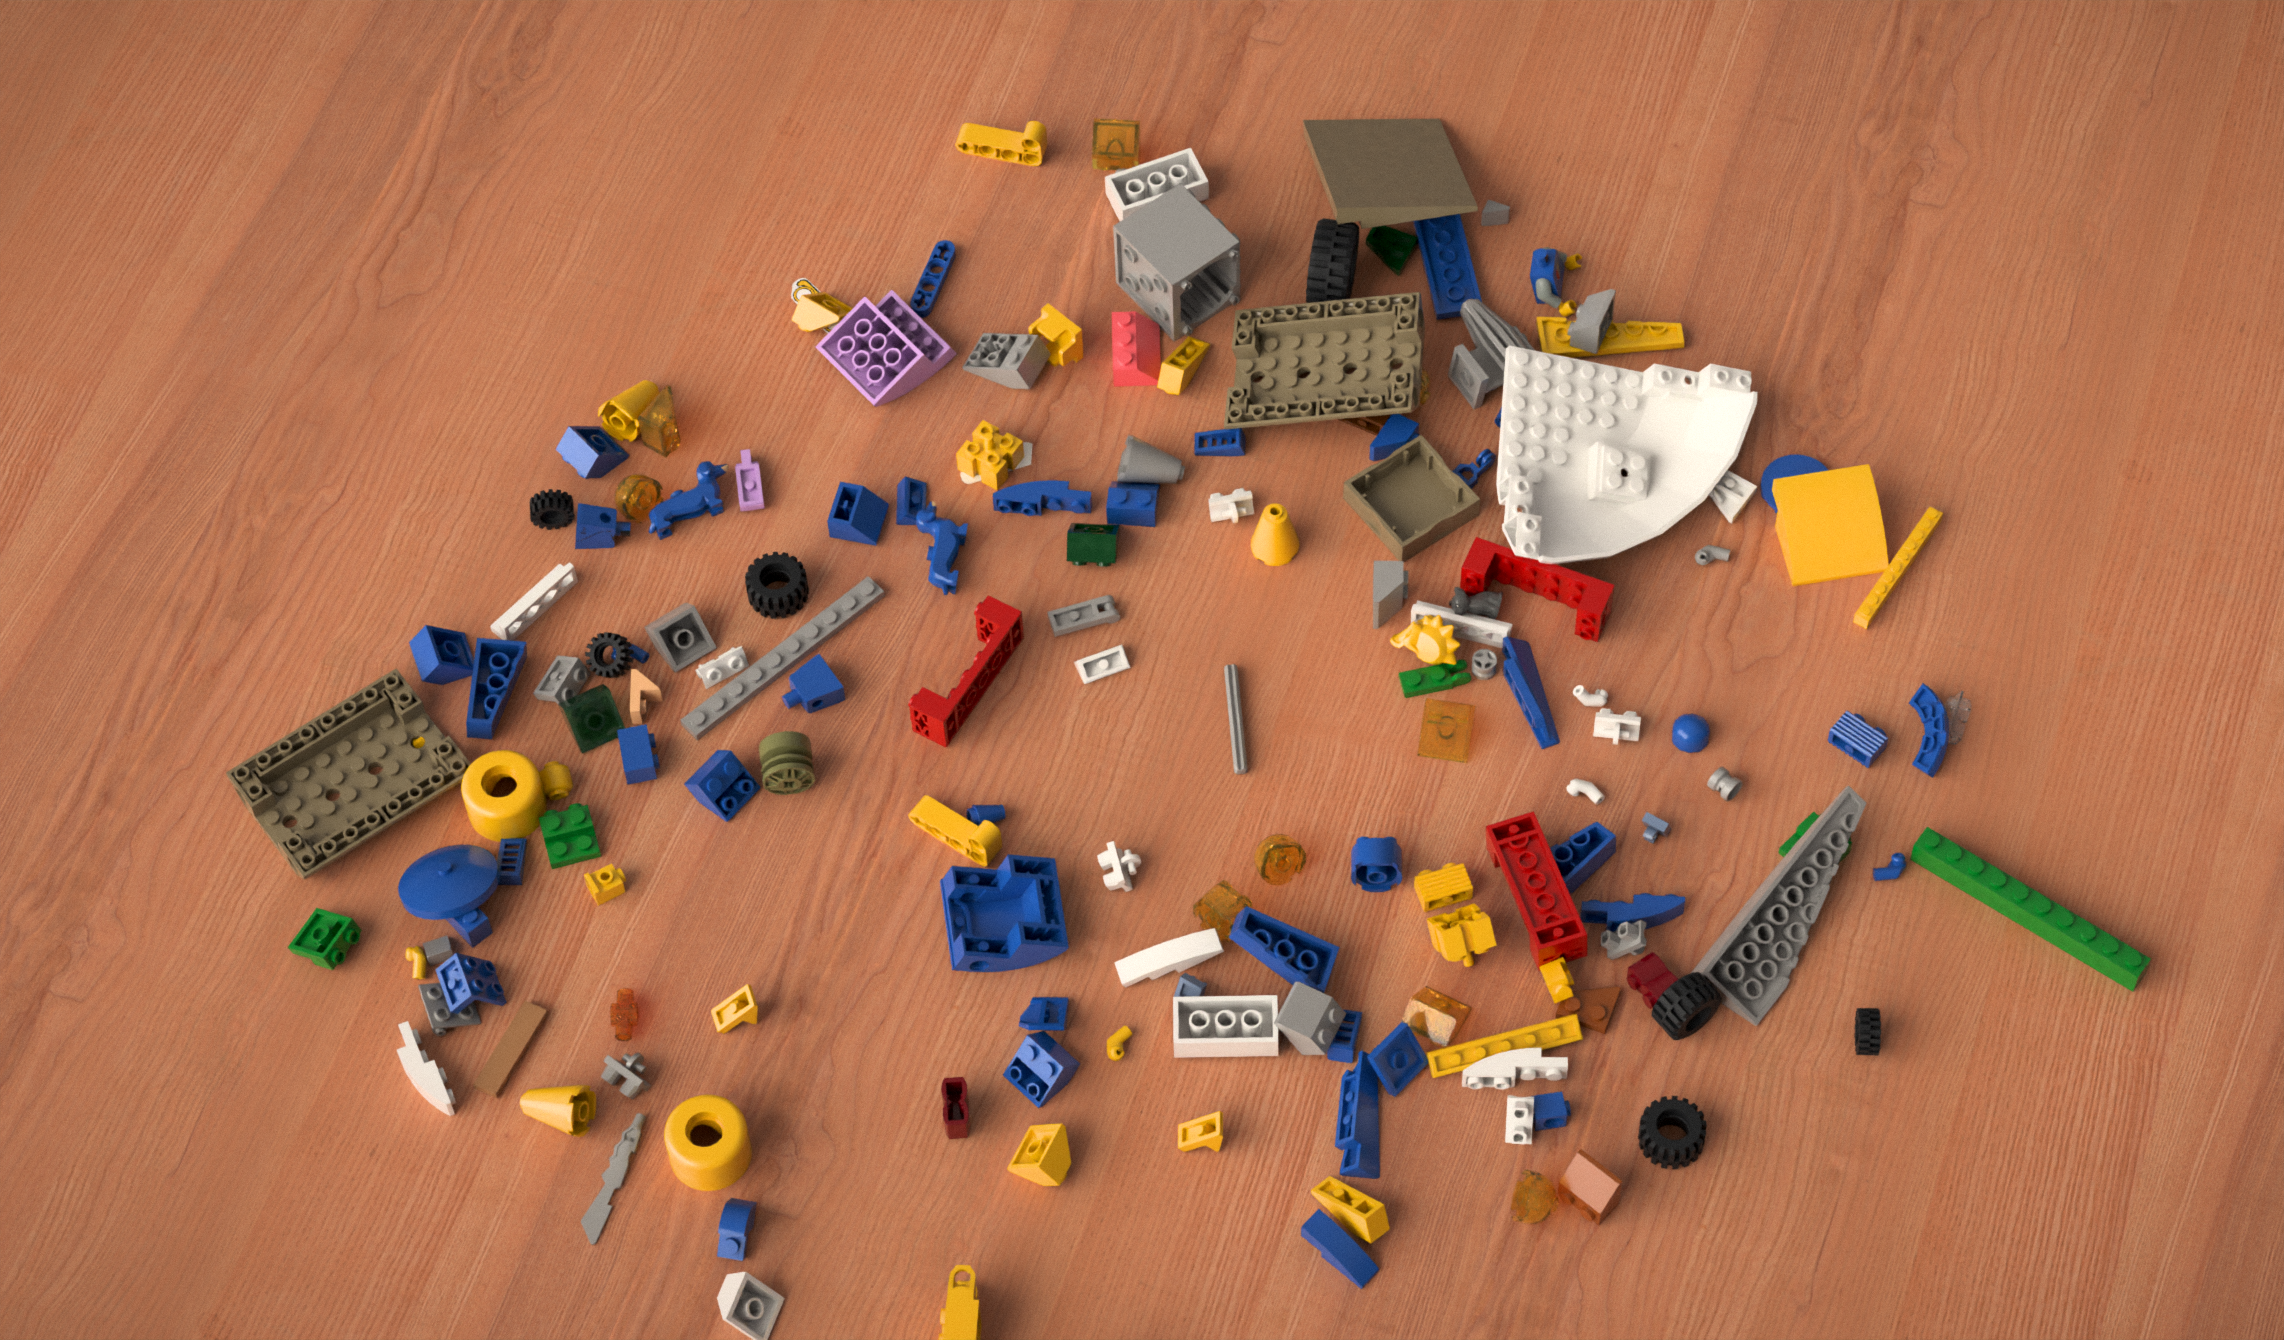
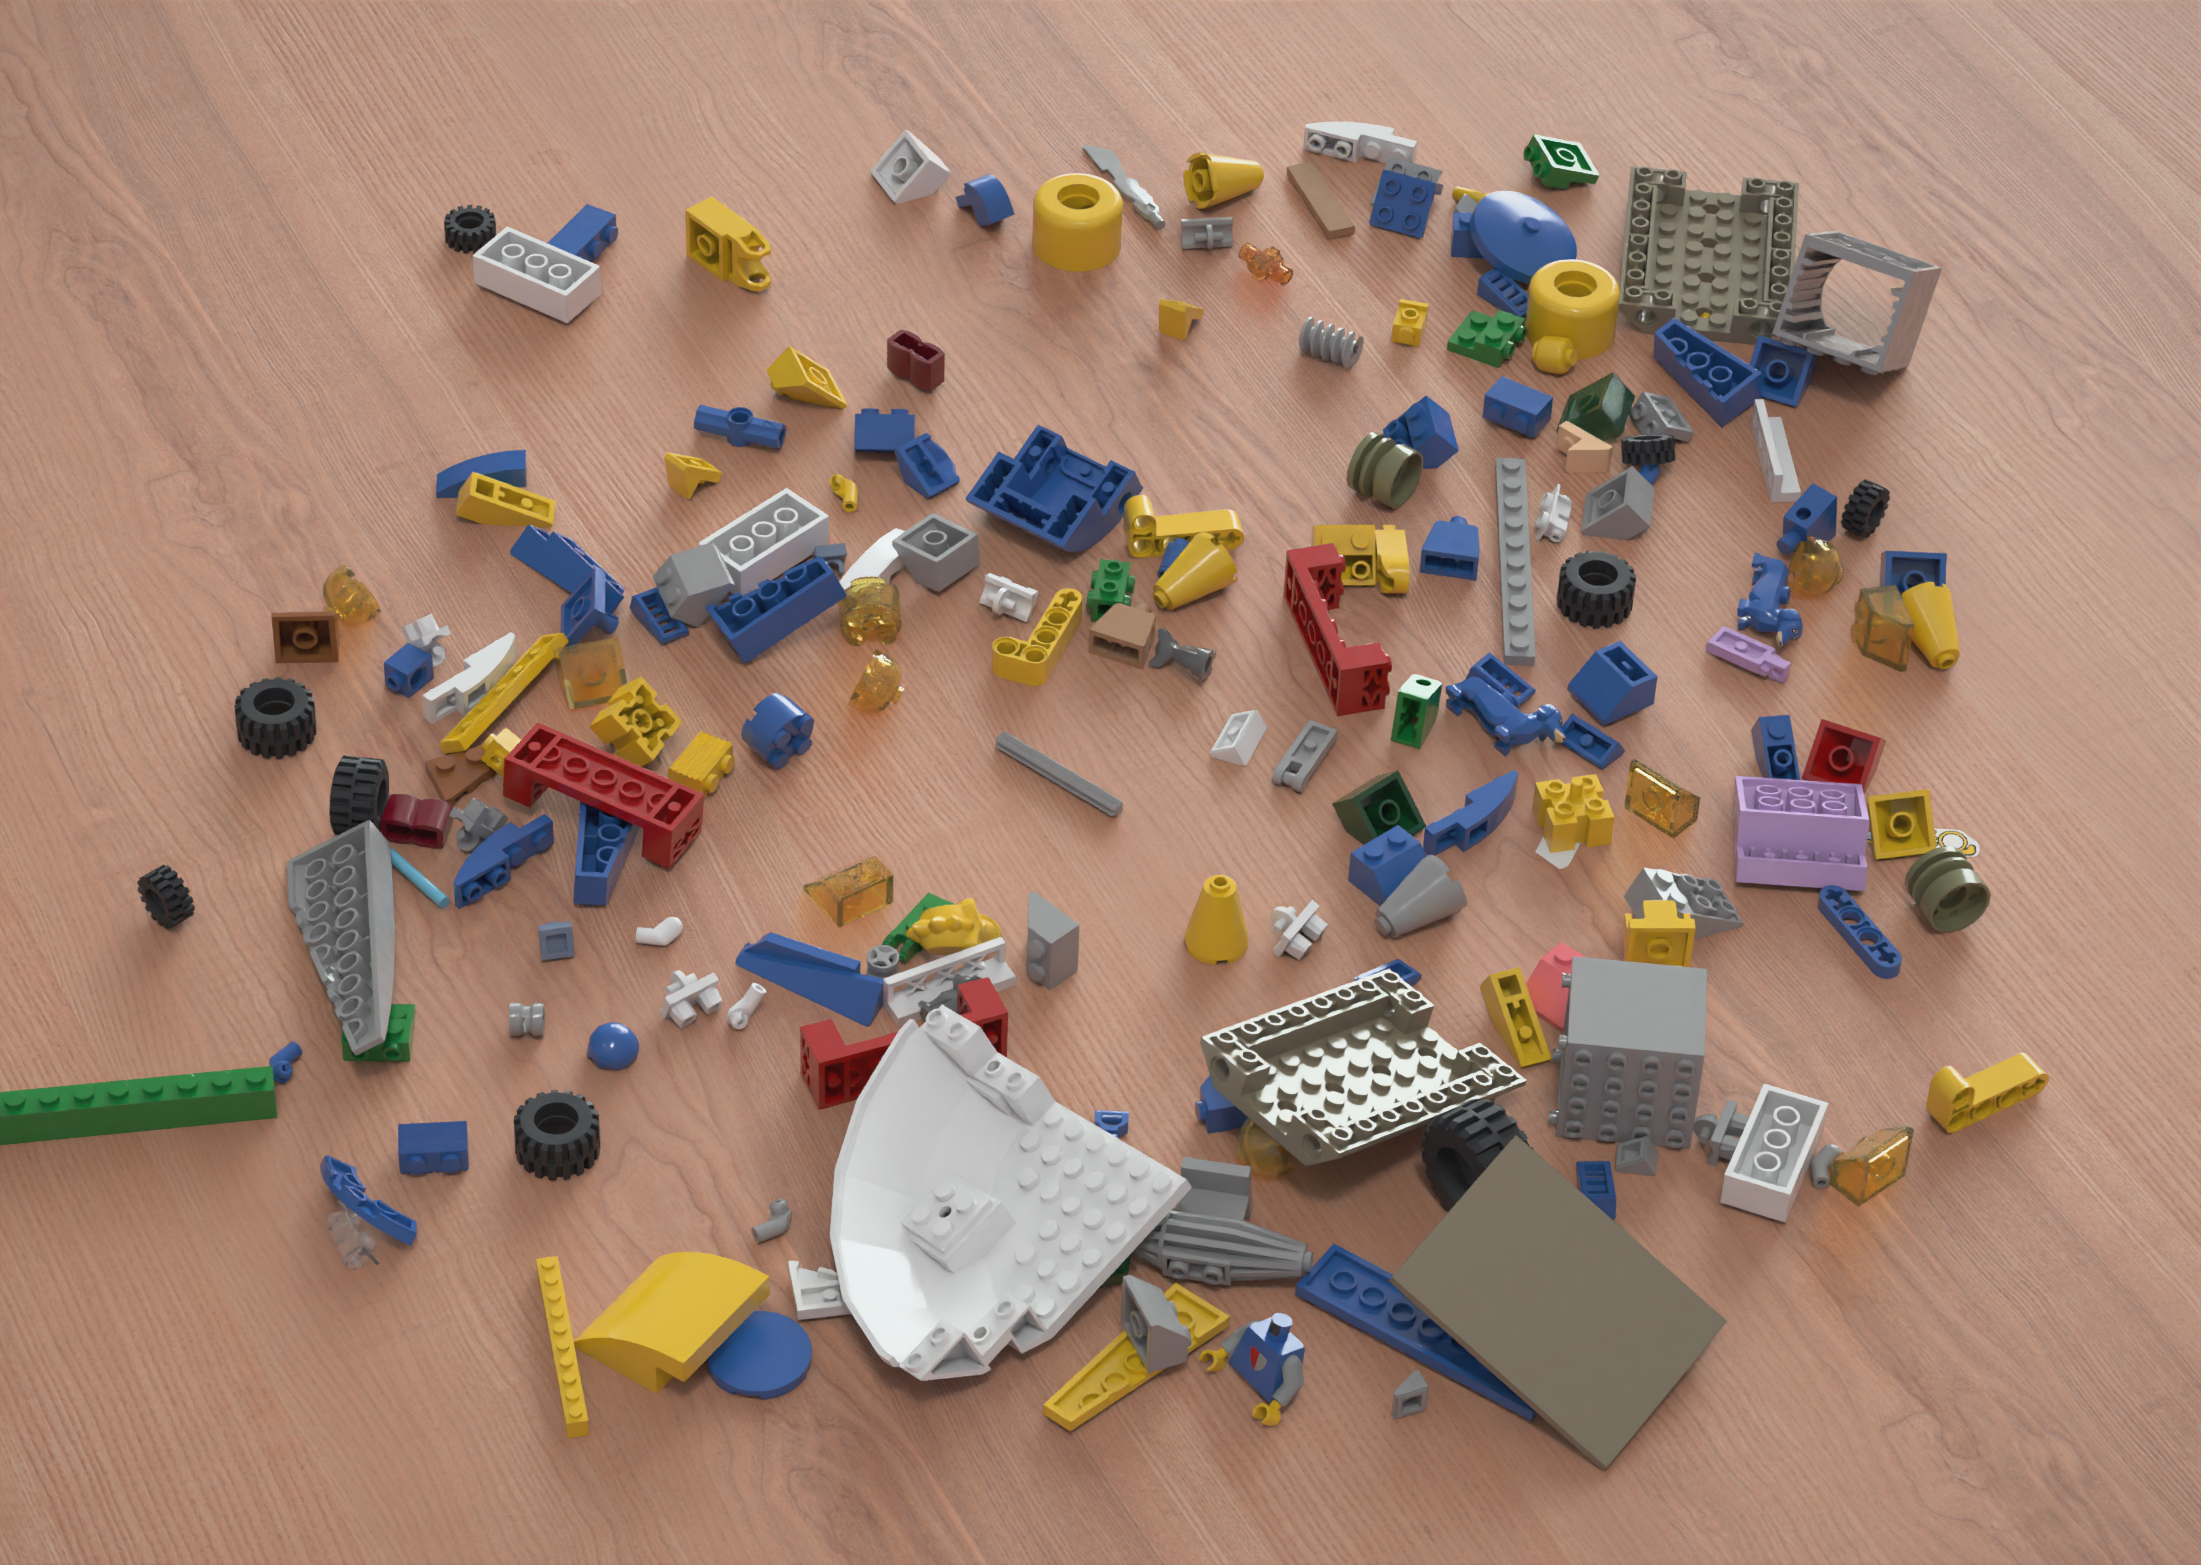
camera: 130 degrees right, 15 degrees down
(369, 609) = (1801, 311): none -> light grey piece
(676, 906) = (1329, 345): none -> light grey piece
(795, 369) = (1843, 755): none -> red slope
(829, 404) = (1775, 747): none -> blue slope
(861, 705) = (1391, 560): none -> yellow piece
(868, 246) = (1947, 889): none -> olive wheel
(881, 734) = (1356, 546): none -> yellow slope
(908, 580) = (1492, 669): none -> blue slope
(930, 422) = (1660, 799): none -> clear yellow slope
(984, 581) = (1416, 699): none -> green torso
(994, 784) = (1195, 573): none -> yellow cone
(1052, 820) = (1110, 587): none -> green brick
(1068, 728) = (1193, 658): none -> dark grey animal
(1081, 781) = (1124, 634): none -> medium nougat torso
(1097, 832) = (1035, 660): none -> yellow beam
(1127, 926) = (937, 551): none -> light grey slope
(1134, 1163) = (740, 426): none -> blue piece
(1261, 239) = (1597, 1189): none -> blue slope
(1411, 499) = (1132, 1052): dark tan tile -> none
(1690, 943) = (419, 880): none -> medium azure bar
(1784, 704) = (557, 1134): none -> black tyre

